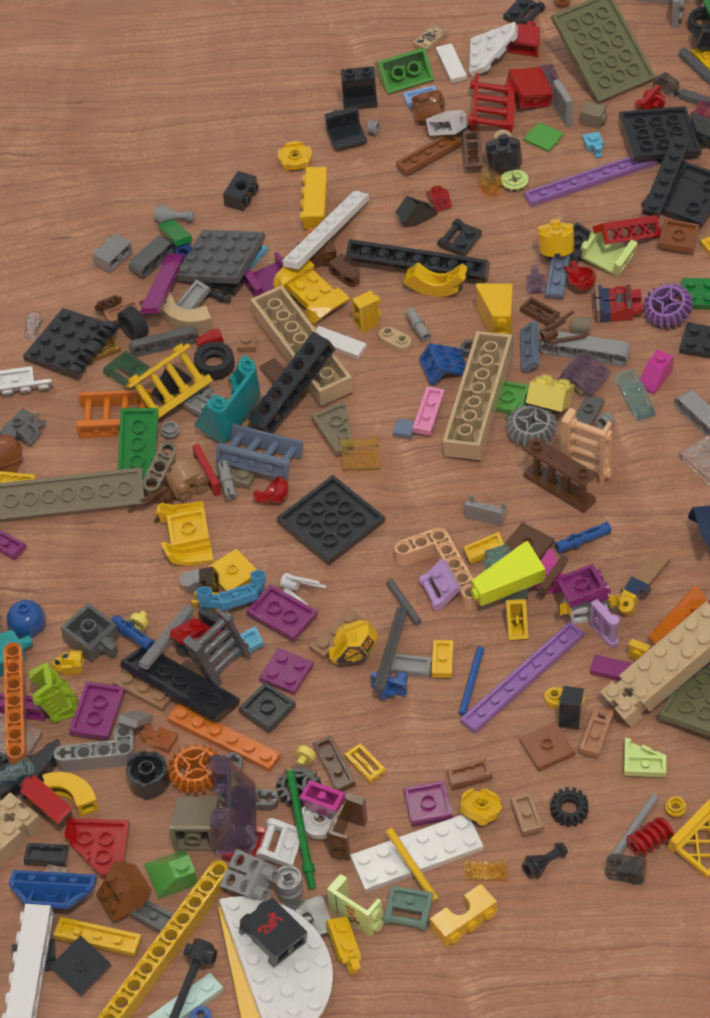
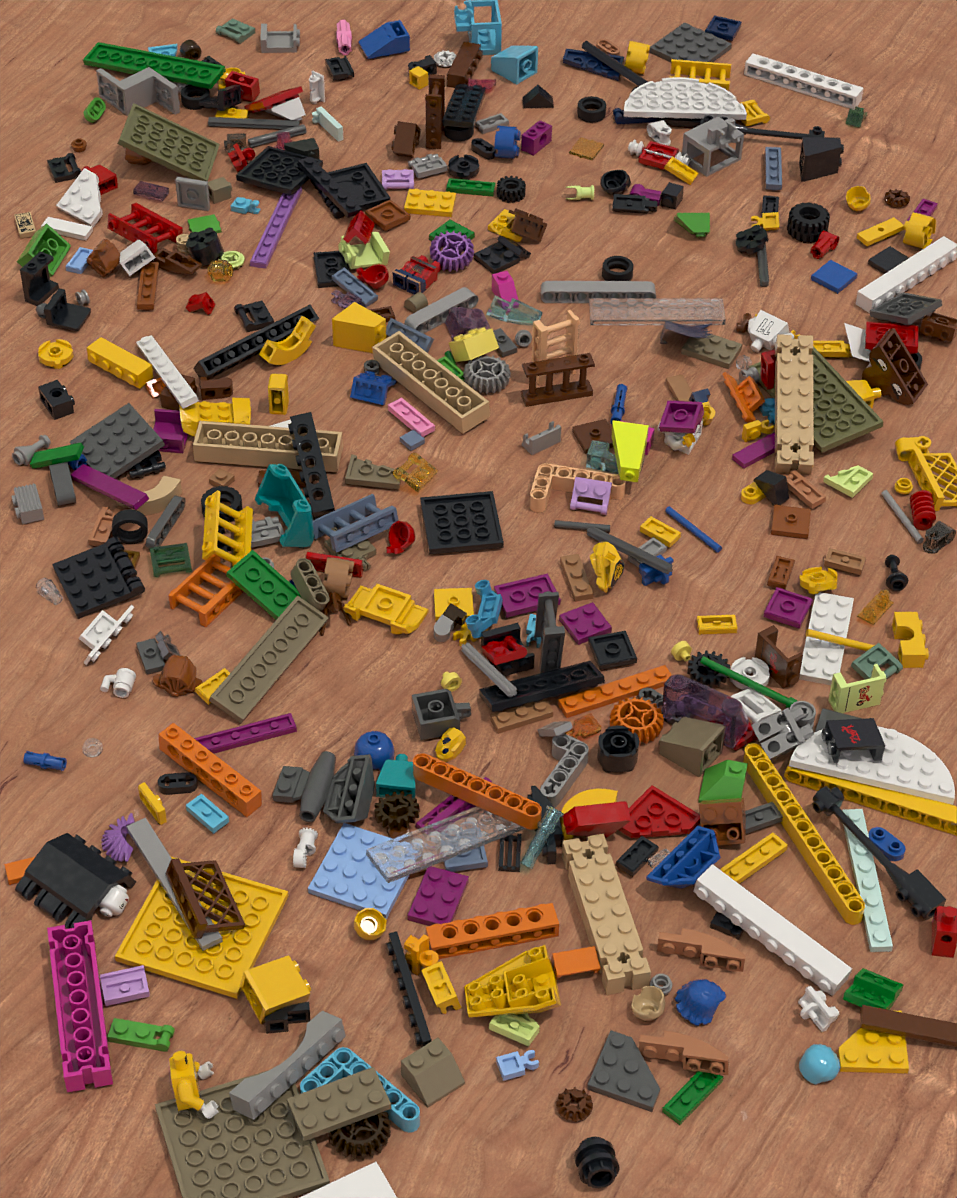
camera: 60 degrees left, 5 degrees down
(53, 694) = (485, 754): lime piece -> none
(80, 966) = (772, 885): black plate -> none
(97, 711) = (518, 752): magenta plate -> none
(108, 302) = (84, 532): reddish brown gear -> none
(128, 630) = (468, 687): blue pin -> none
(194, 295) = (138, 477): light grey tile -> none
(210, 336) = (195, 494): red cone -> none
(226, 480) = (362, 554): light grey pin -> none
(293, 582) = (503, 574): white plant -> none
(321, 798) = (749, 651): dark pink slope -> none
(334, 764) = (703, 641): reddish brown tile -> none
(344, 943) = (883, 718): yellow hinge -> none
(395, 339) = (315, 399): tan plate -> none
(414, 211) = (201, 322): pearl dark grey slope -> none
(418, 324) = (317, 379): light grey pin -> none
(476, 550) = (577, 454): yellow plate -> none
(516, 619) = (663, 474): yellow slope -> none
(522, 677) = (715, 503): medium lavender tile -> none
(531, 87) = (153, 198): red panel -> none
(550, 332) = (417, 314): reddish brown plant -> none
(553, 574) = (655, 430): reddish brown tile -> none
(556, 238) = (328, 263): yellow brick -> none
(569, 796) = (857, 529): black tyre -> none
(604, 623) = (710, 430): lavender plate -> none

